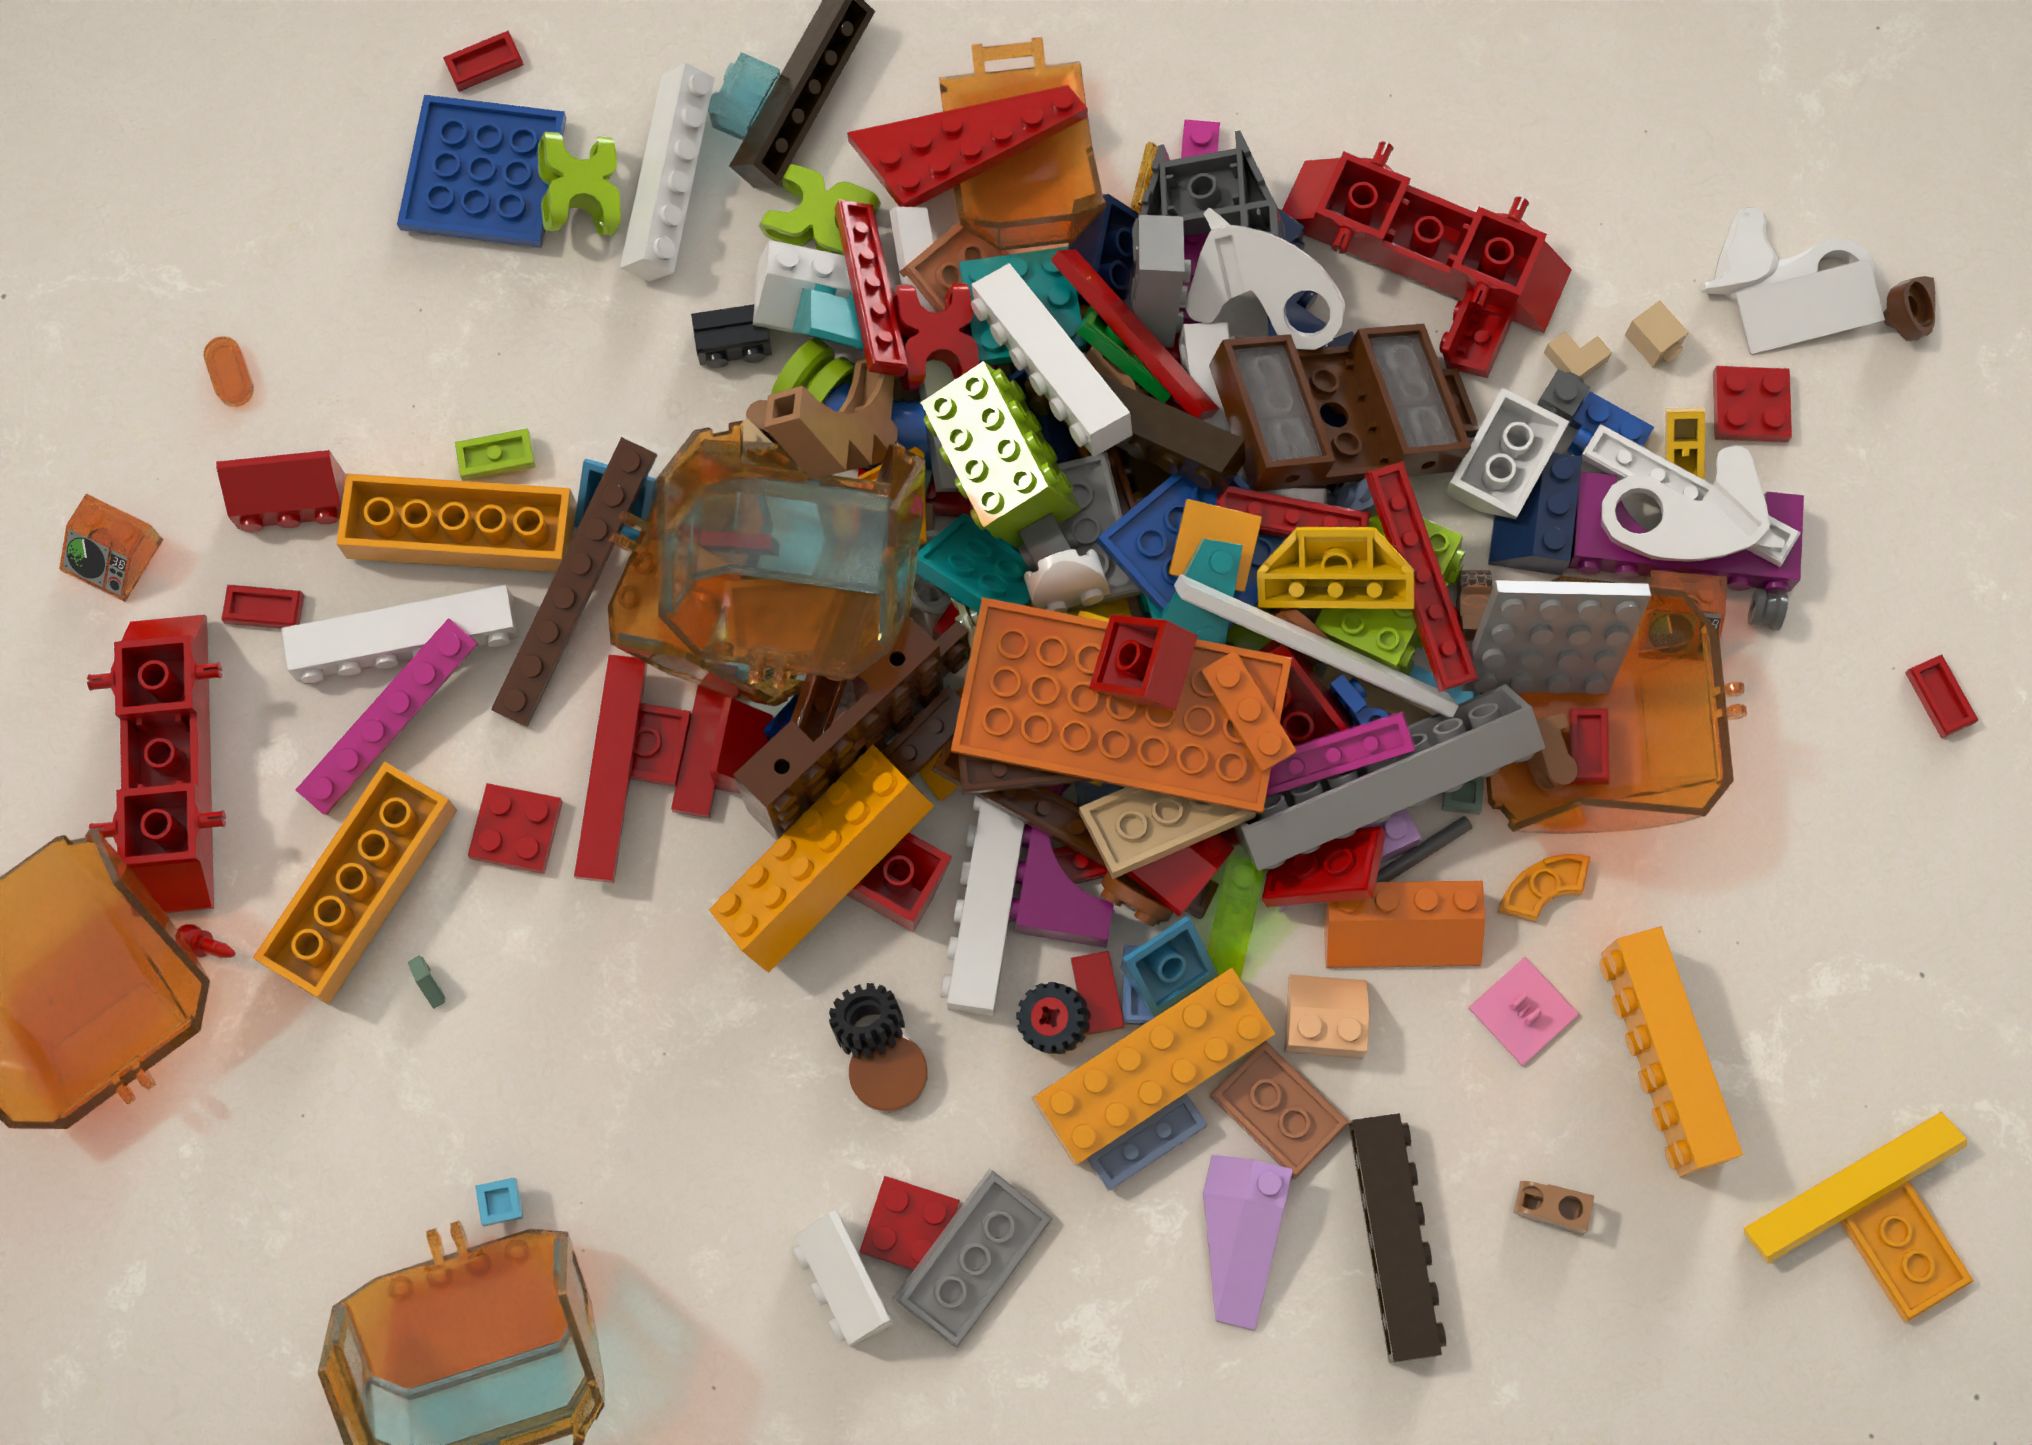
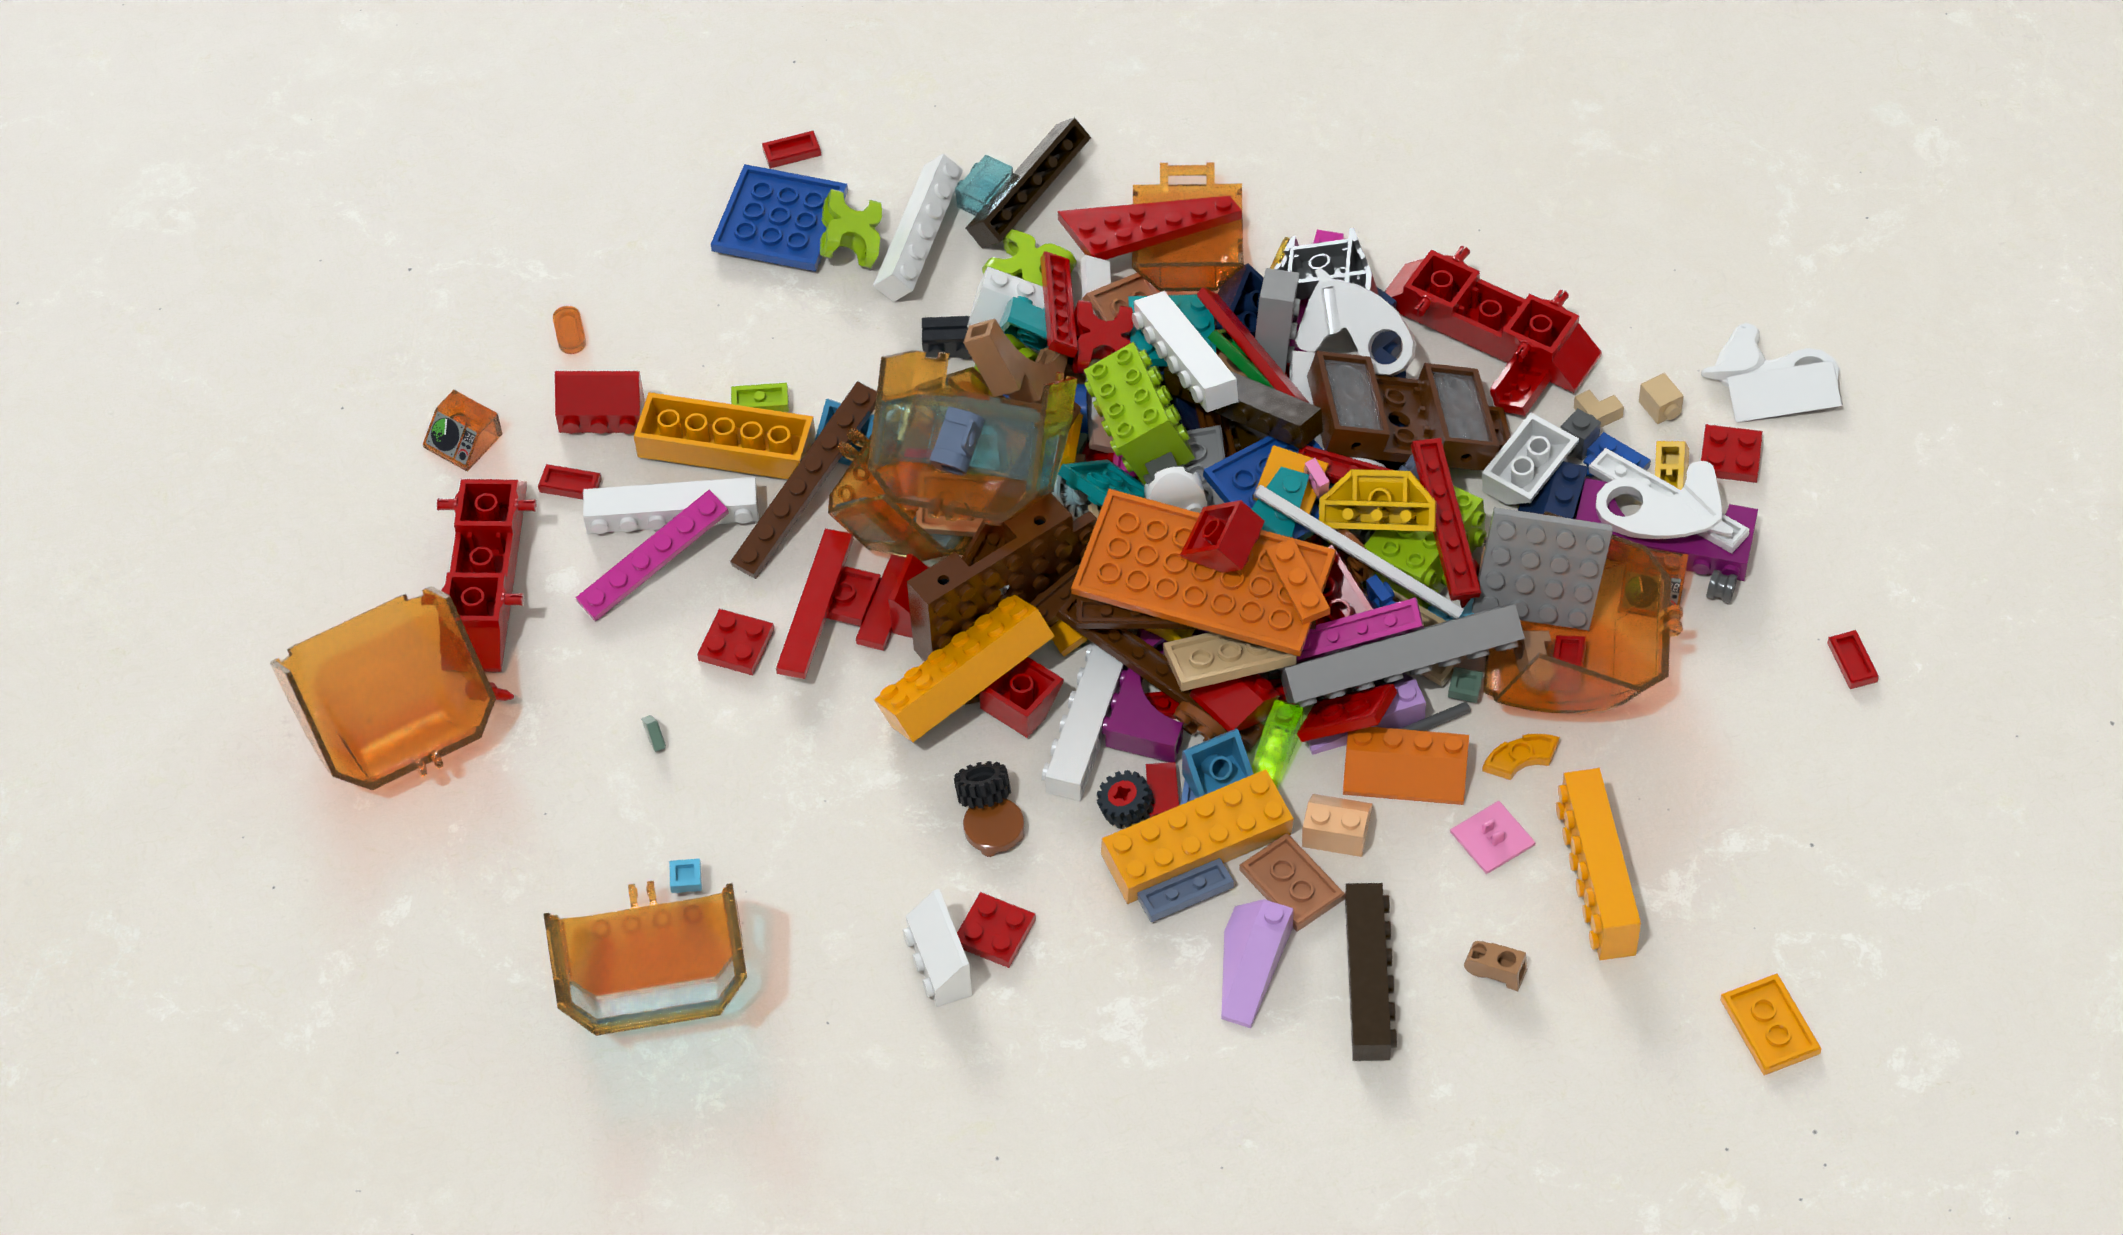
camera: 10 degrees right, 20 degrees down
(356, 883) = (611, 659): light orange brick -> none
(772, 550) = (957, 441): none -> sand blue piece
(972, 1258) = (1039, 951): light grey tile -> none
(1252, 545) = (1317, 477): none -> bright pink tile
(1855, 1187) = (1735, 975): yellow tile -> none
(1911, 308) = (1864, 398): reddish brown piece -> none

